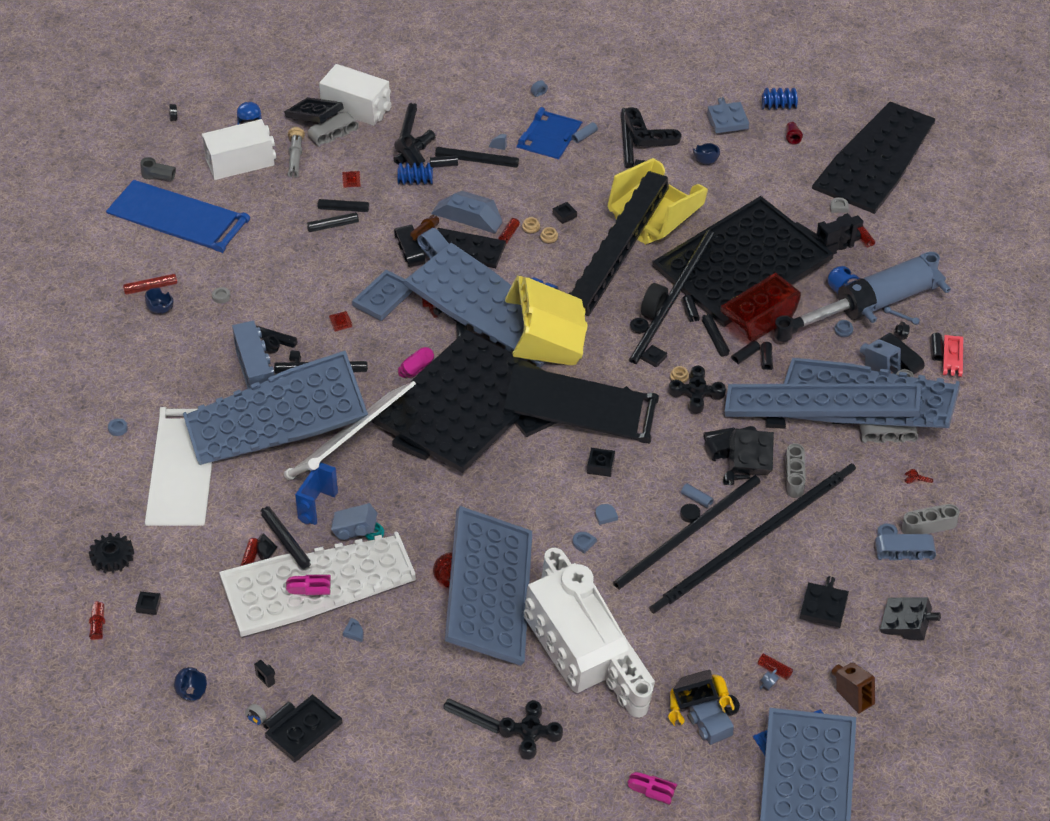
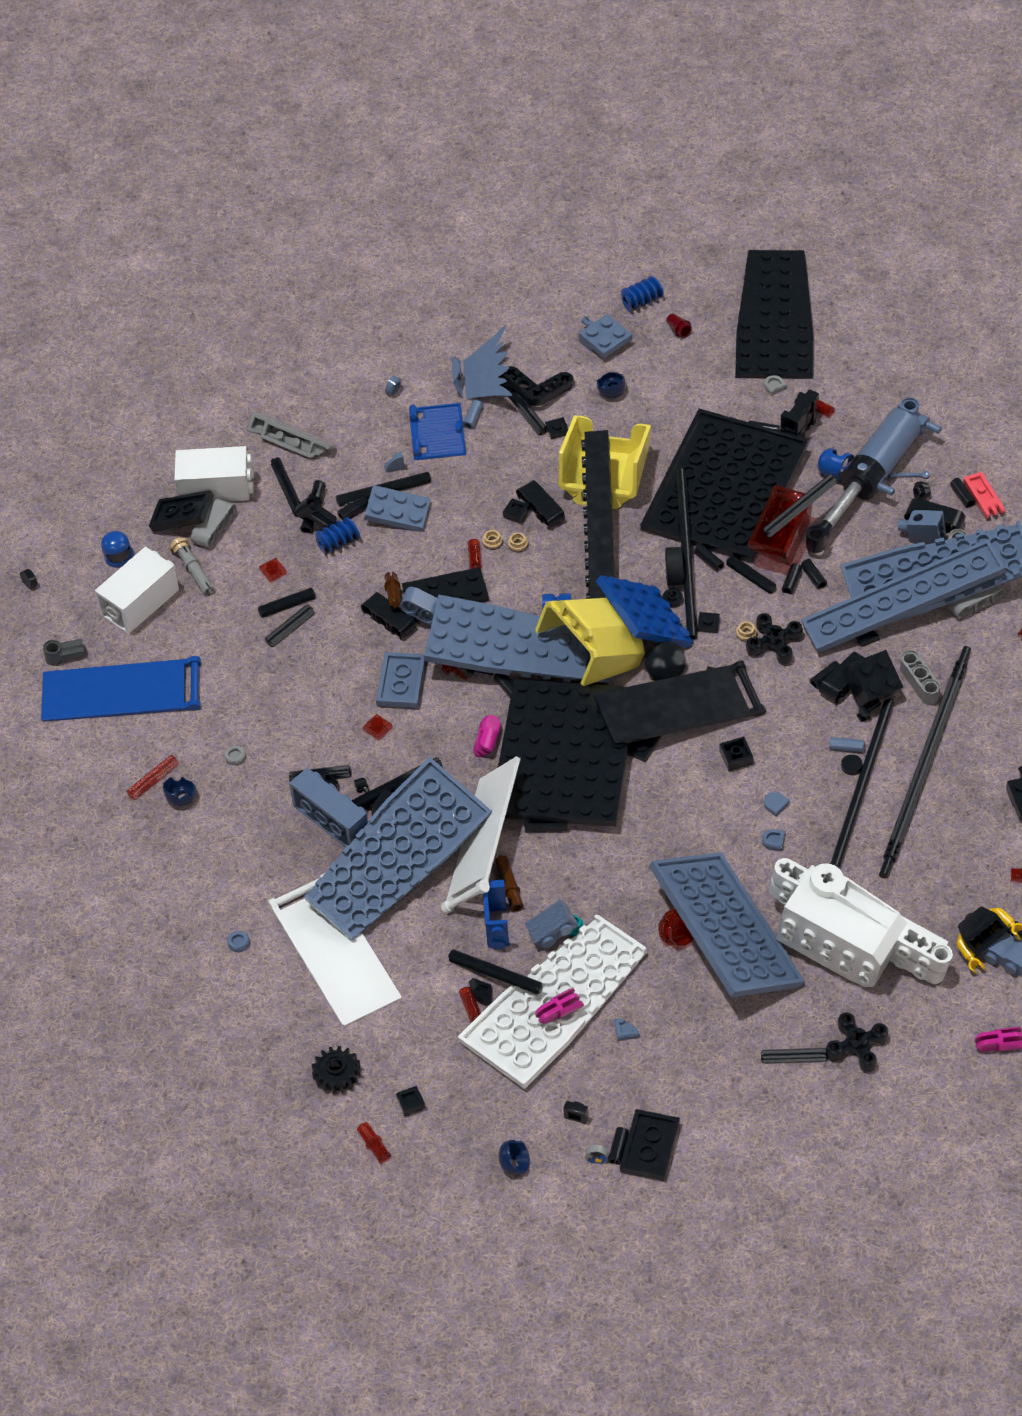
camera: 25 degrees left, 5 degrees up
(347, 483) = (511, 889): none -> reddish brown axle
(435, 92) = (287, 435): none -> light grey wedge
(470, 210) = (419, 550): sand blue wedge -> none
(475, 174) = (397, 508): none -> sand blue plate
(587, 215) = (541, 503): none -> black beam
(595, 366) = (665, 660): none -> black dish
(601, 322) = (644, 611): none -> blue plate
(612, 104) = (482, 370): none -> sand blue piece
(782, 294) = (799, 505): none -> black axle
(844, 328) = (865, 512): sand blue plate -> none

